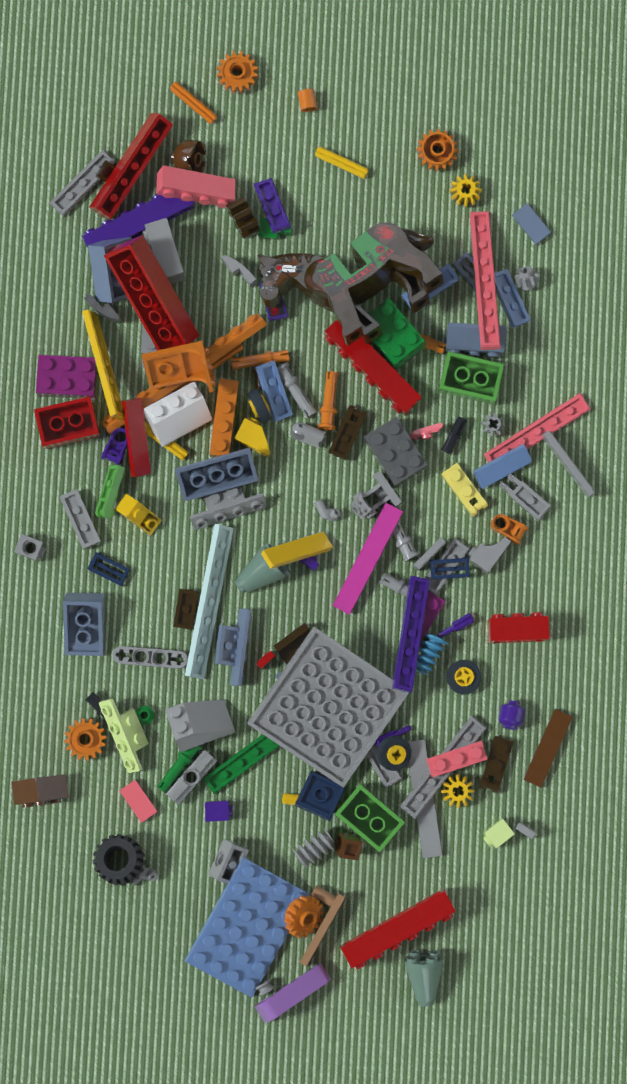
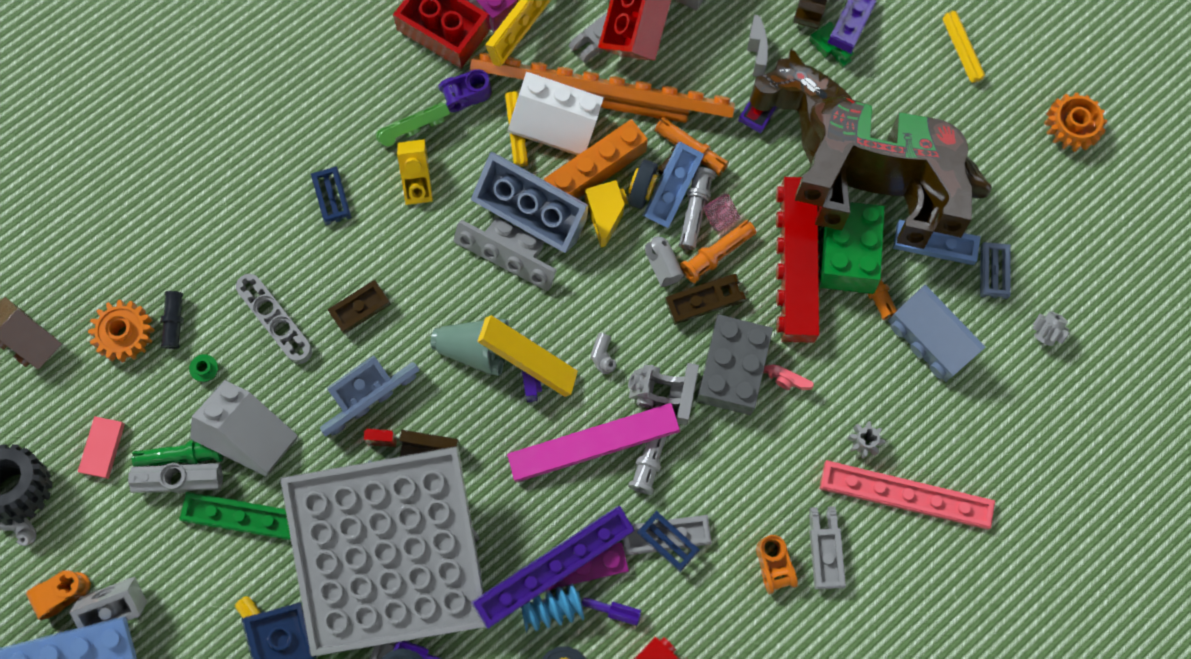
camera: 45 degrees right, 10 degrees down
(22, 544) = (275, 91): light grey brick -> none
(80, 519) = (356, 122): light grey plate -> none
(84, 623) = (248, 219): sand blue slope -> none
(126, 733) = (166, 364): yellowish green bracket -> none
(136, 437) = (491, 95): red tile -> none
(179, 365) = (602, 62): orange bracket -> none
(196, 885) = (54, 594): none -> orange piece
(209, 601) = (388, 323): light aqua plate -> none
(218, 811) = (161, 541): dark purple brick -> none
(310, 379) = (721, 212): none -> clear pink plate
(394, 584) = (594, 501): light grey pin -> none
(429, 554) = (662, 504): light grey tile -> none
(454, 435) = (813, 410): black axle -> none
(463, 197) = (1077, 188): yellow gear -> none
(464, 489) = (768, 475): light yellow plate -> none
(471, 378) = (891, 368): bright green brick -> none
(484, 281) = (1002, 286): coral tile -> none
(486, 556) = (721, 569): light grey arch -> none
(502, 466) = (834, 492): medium blue tile -> none
(510, 299) = (1011, 331): medium blue plate -> none
(531, 224) = (1106, 283): sand blue tile -> none
(568, 464) = (909, 560): light grey tile -> none

